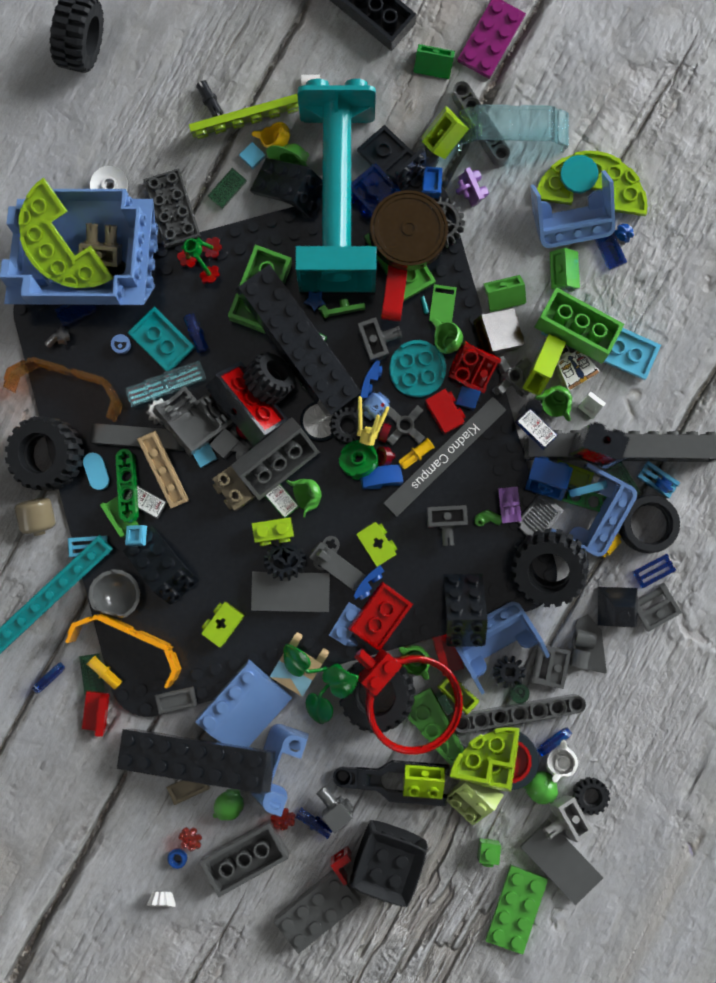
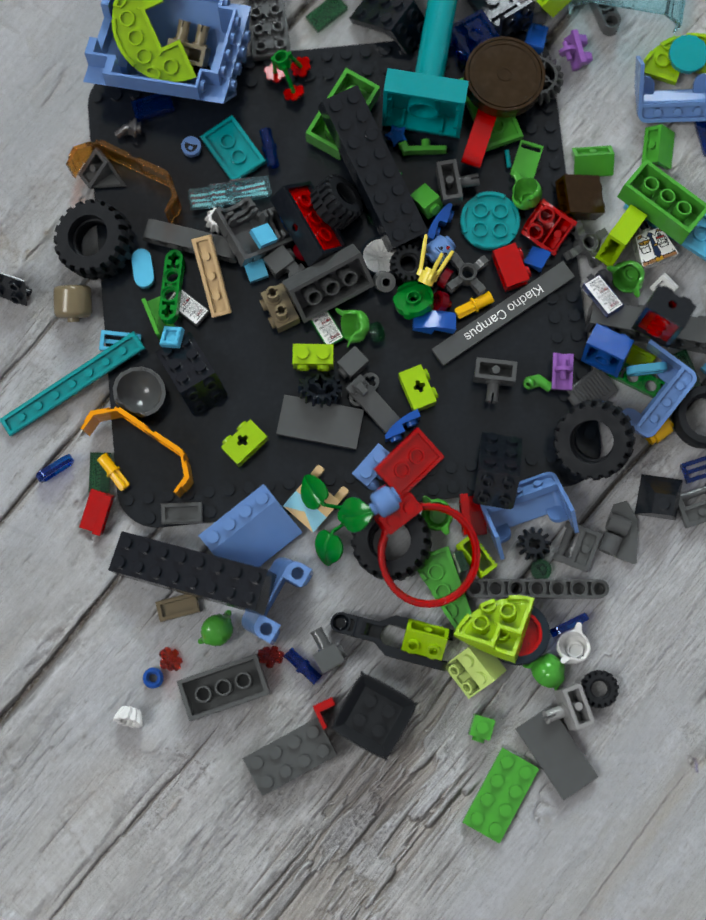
camera: 15 degrees right, 5 degrees down
(37, 385) = (99, 172): none -> dark grey slope
(205, 424) = (263, 235): none -> medium azure tile
(311, 531) = (352, 363): none -> dark grey brick
(322, 445) = (378, 279): none -> dark grey brick
(329, 496) = (377, 332): none -> clear green tile
(355, 361) = (427, 201): none -> bright green brick
(365, 668) = (384, 501): none -> medium blue head

